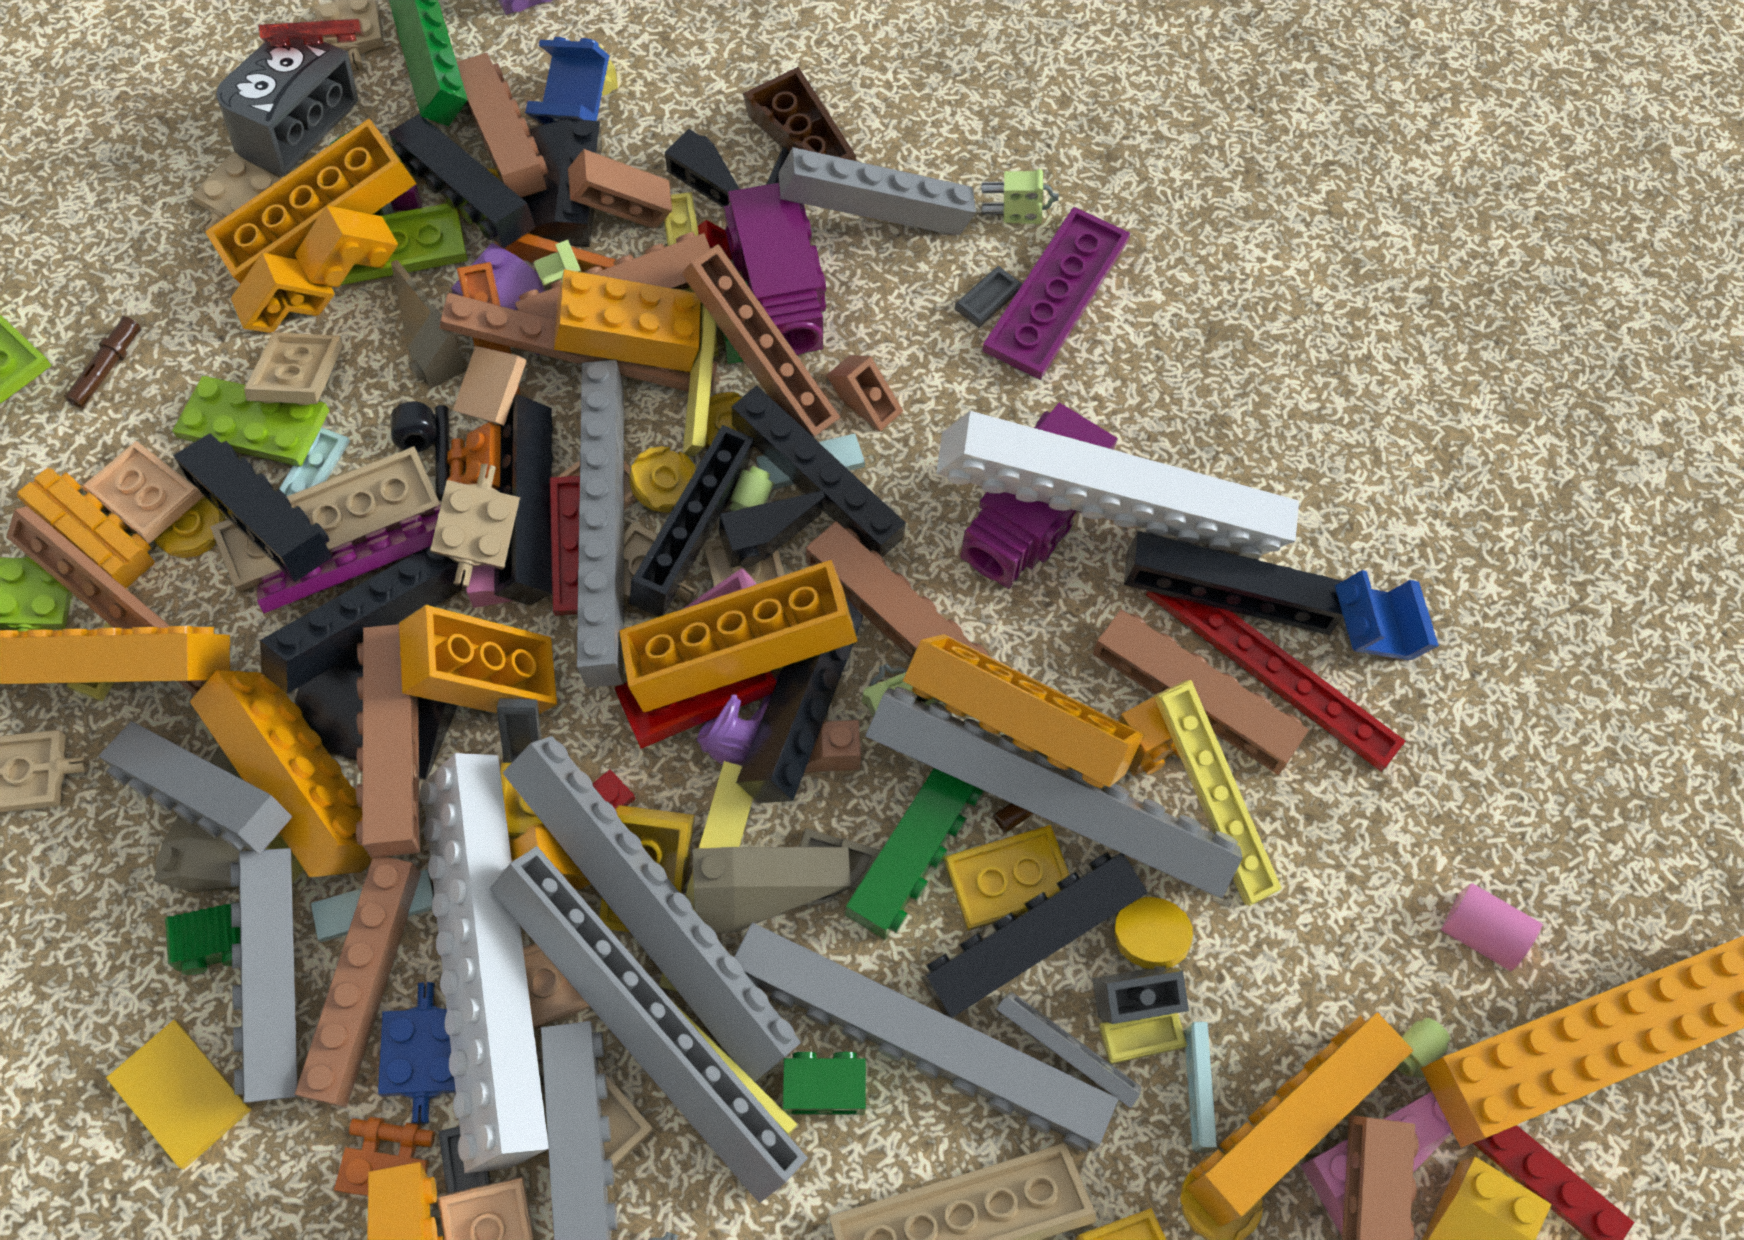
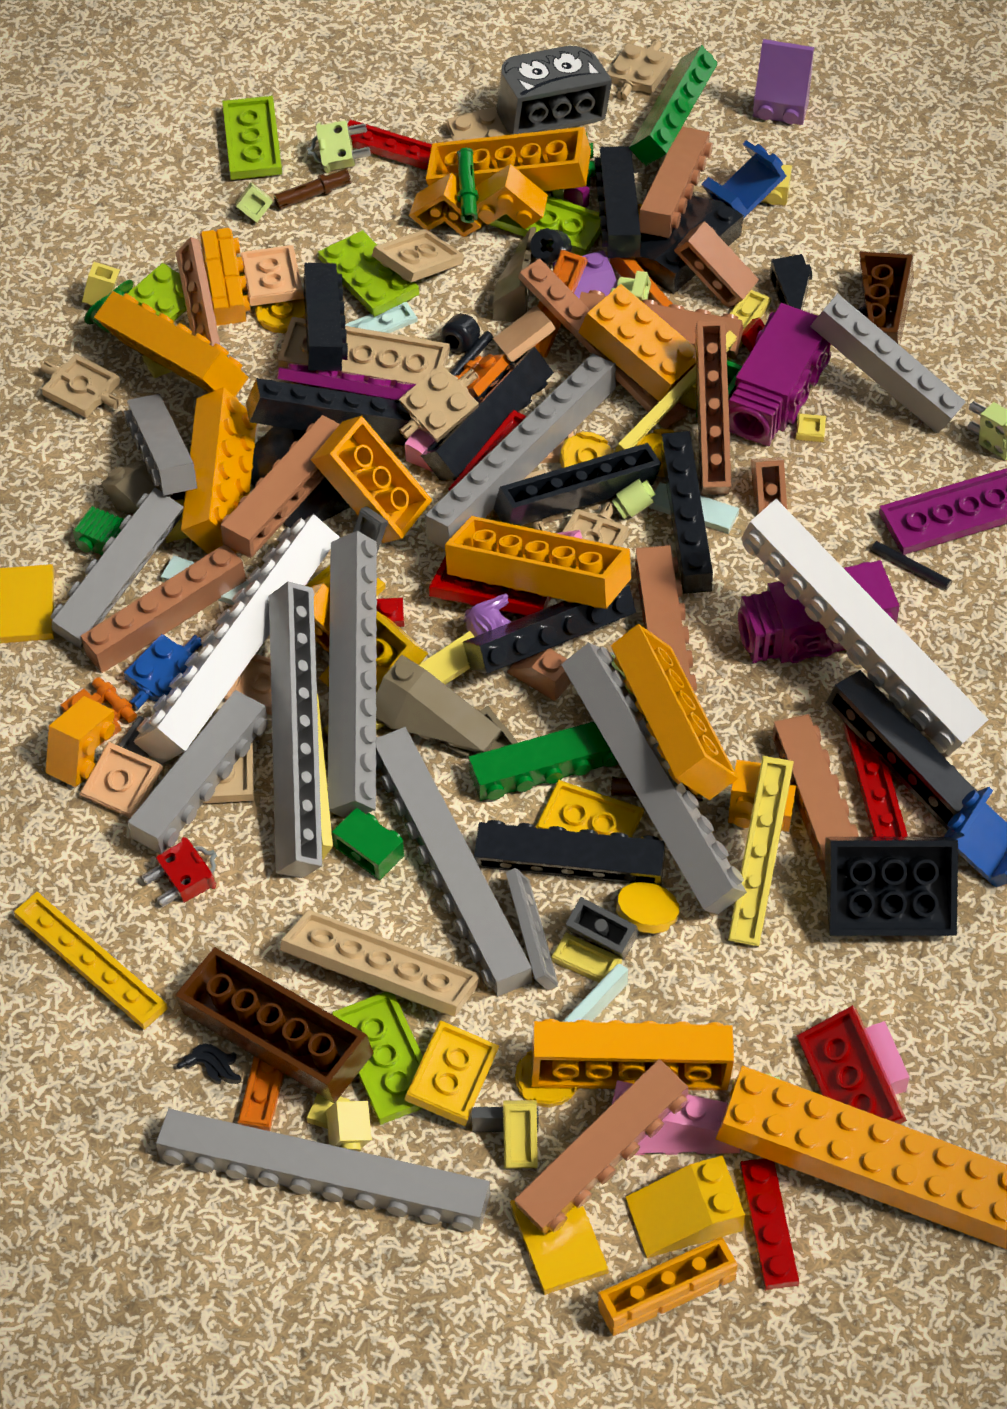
camera: 45 degrees right, 10 degrees down
(47, 418) = (254, 202): none -> yellowish green panel
(93, 295) = (336, 145): none -> yellowish green piece
(148, 261) = (392, 146): none -> red plate
(298, 266) = (467, 194): none -> green pin
(311, 32) = (596, 55): clear red plate -> none
(439, 282) = (540, 244): none -> black piece
(762, 529) = (618, 521): black slope -> none
(845, 304) = (810, 427): none -> light yellow tile
(988, 296) = (916, 481): dark grey tile -> none
(1057, 385) = (911, 565): none -> black bar
(1355, 733) = (891, 886): none -> black slope
(1486, 962) = (849, 1066): none -> red tile

